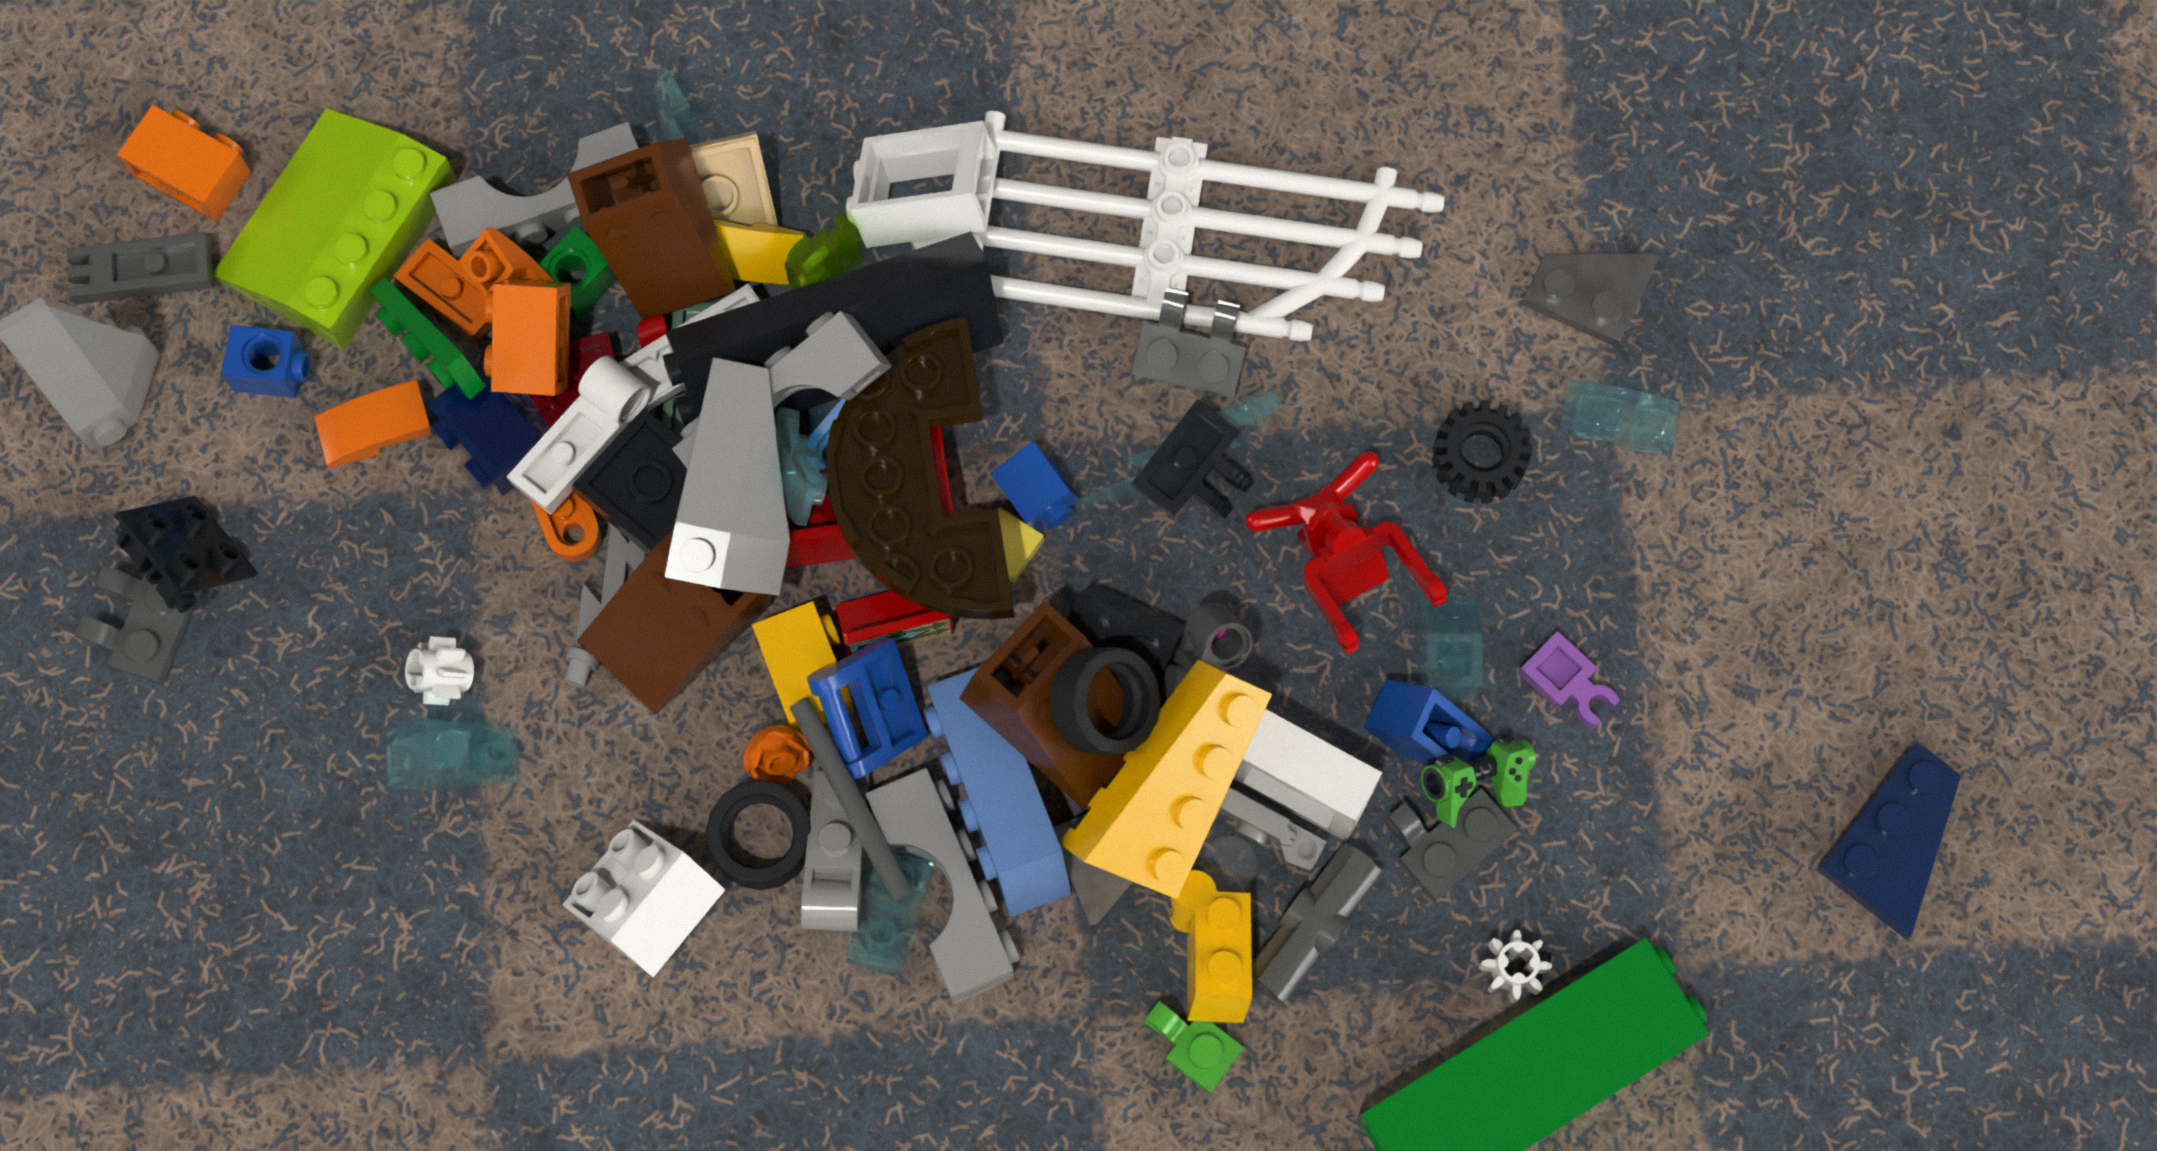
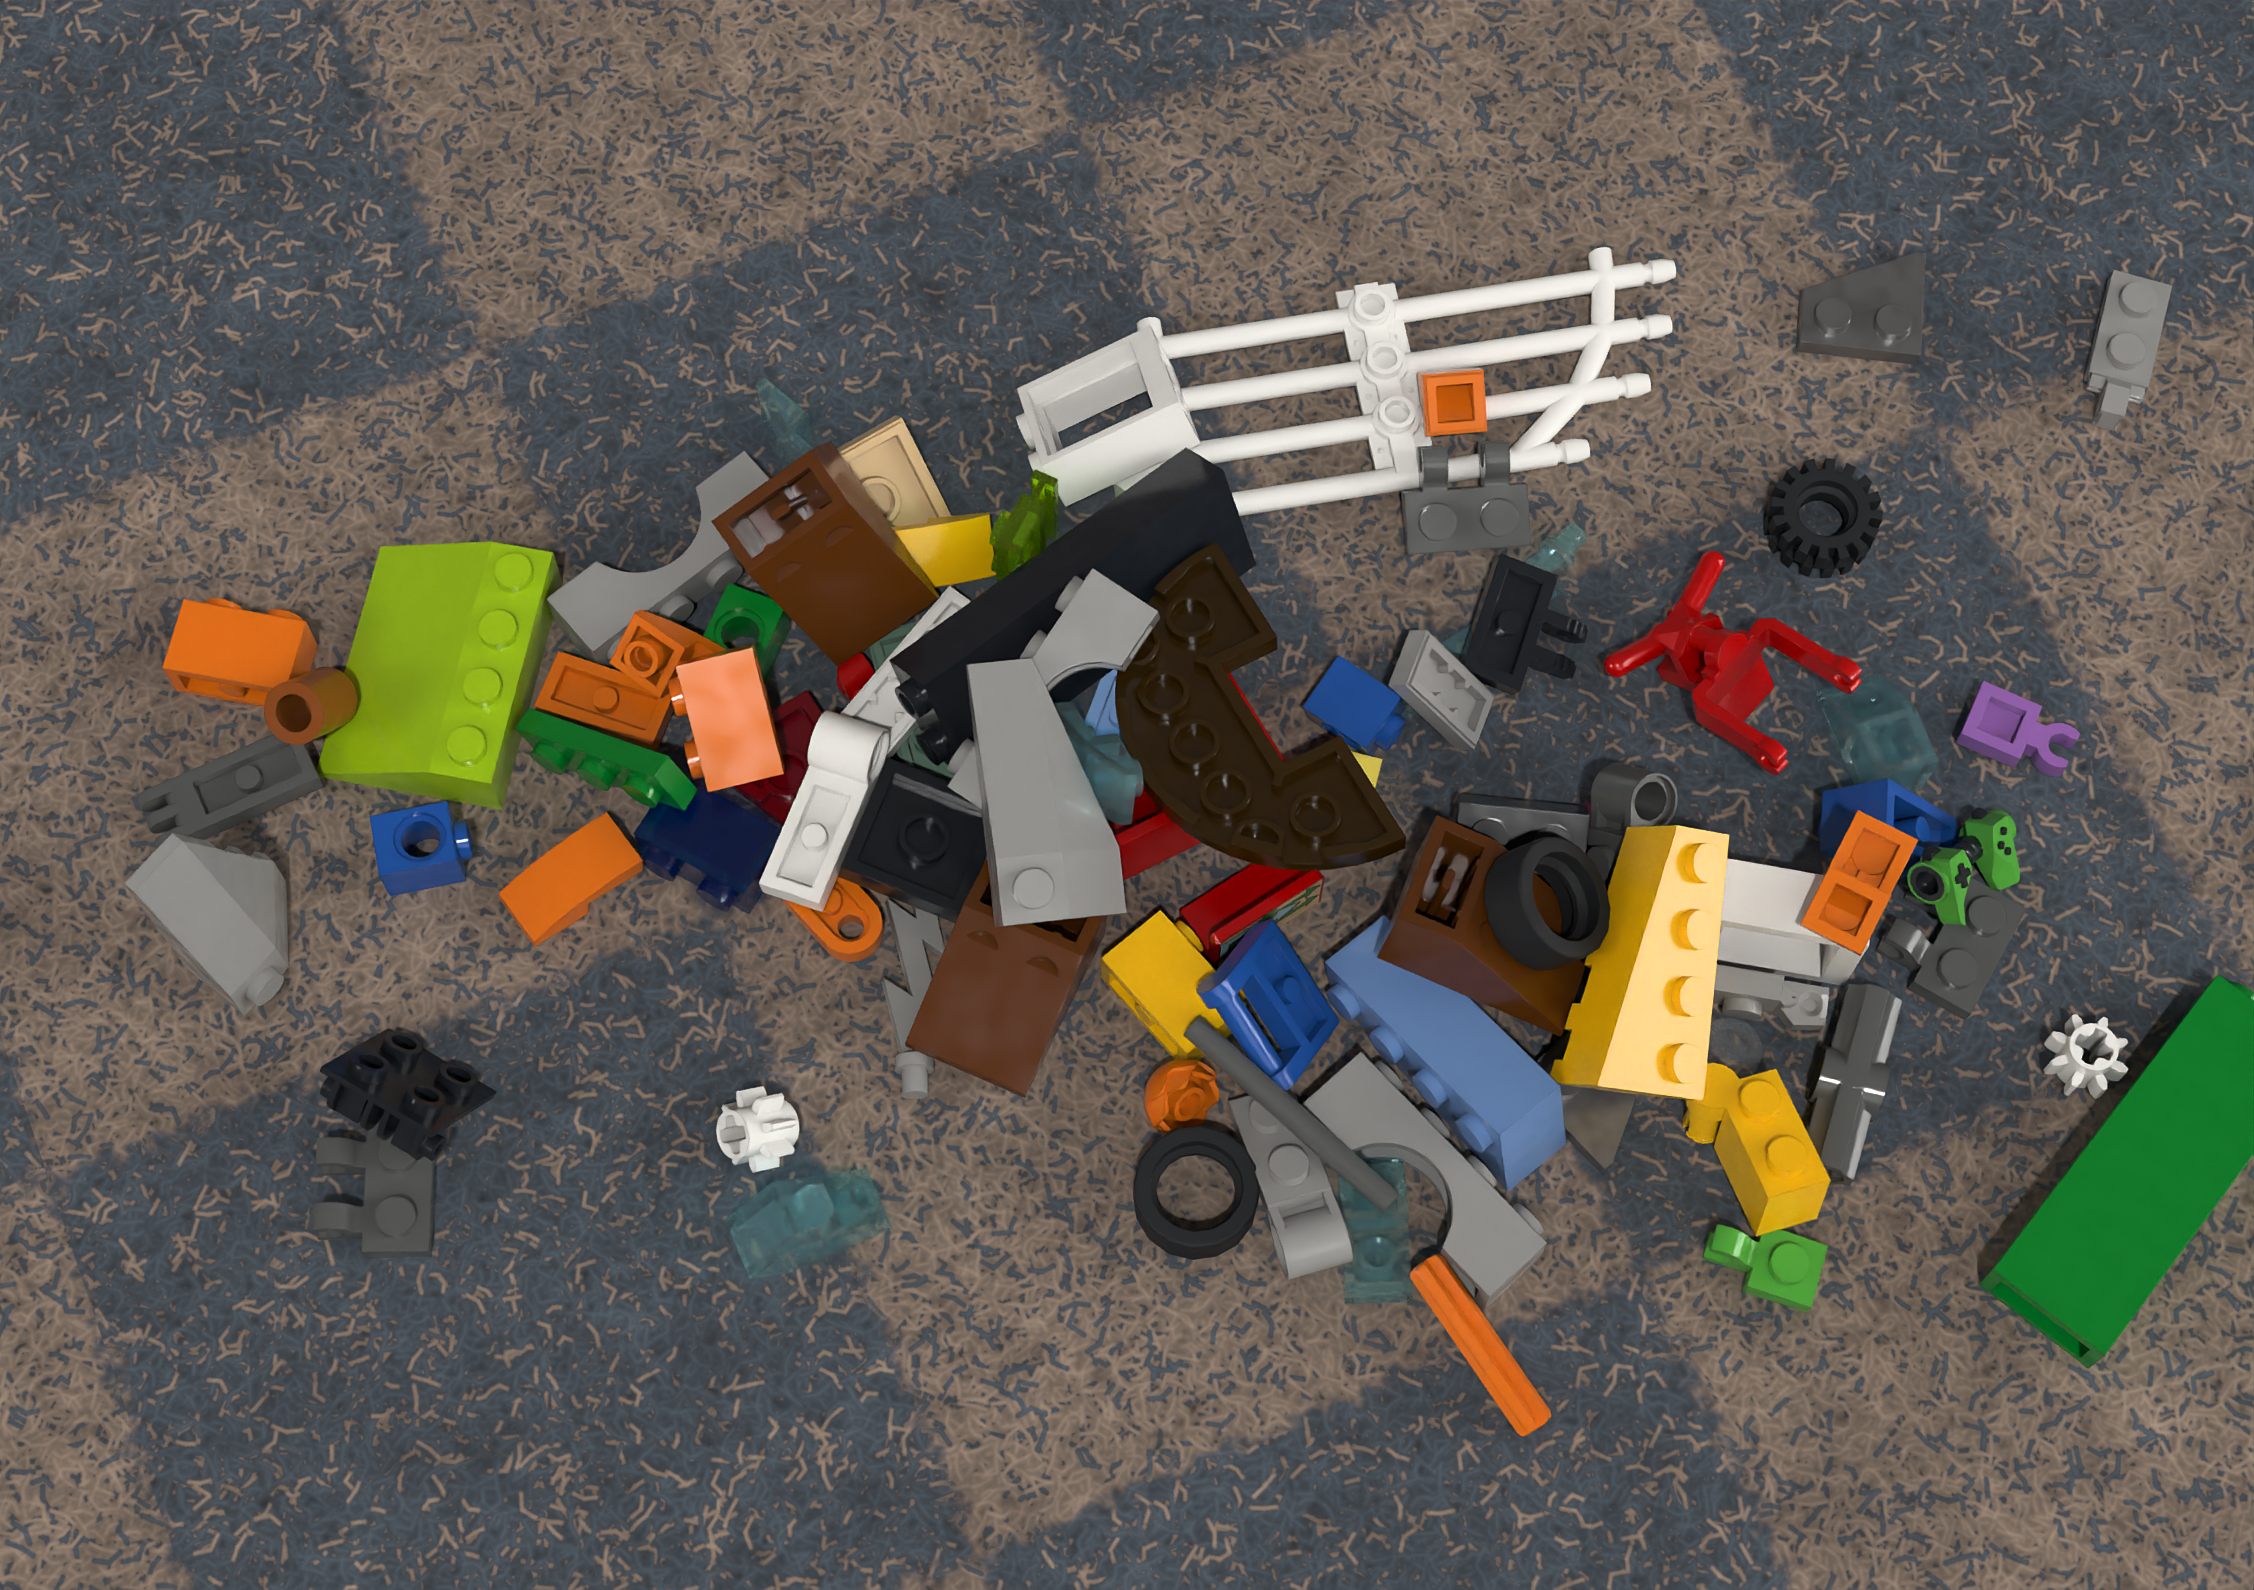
camera: 20 degrees left, 5 degrees down
(217, 221) = (310, 705): none -> dark orange brick
(643, 897) = (1091, 1305): white slope -> none
(935, 1031) = (1480, 1345): none -> orange axle
(1107, 495) = (1441, 690): none -> light grey plate
(1212, 258) = (1452, 401): none -> orange slope
(1364, 767) = (1858, 883): none -> orange slope
(1621, 415) = (1953, 432): clear light blue slope -> none
(1798, 385) = (2125, 344): none -> light grey hinge

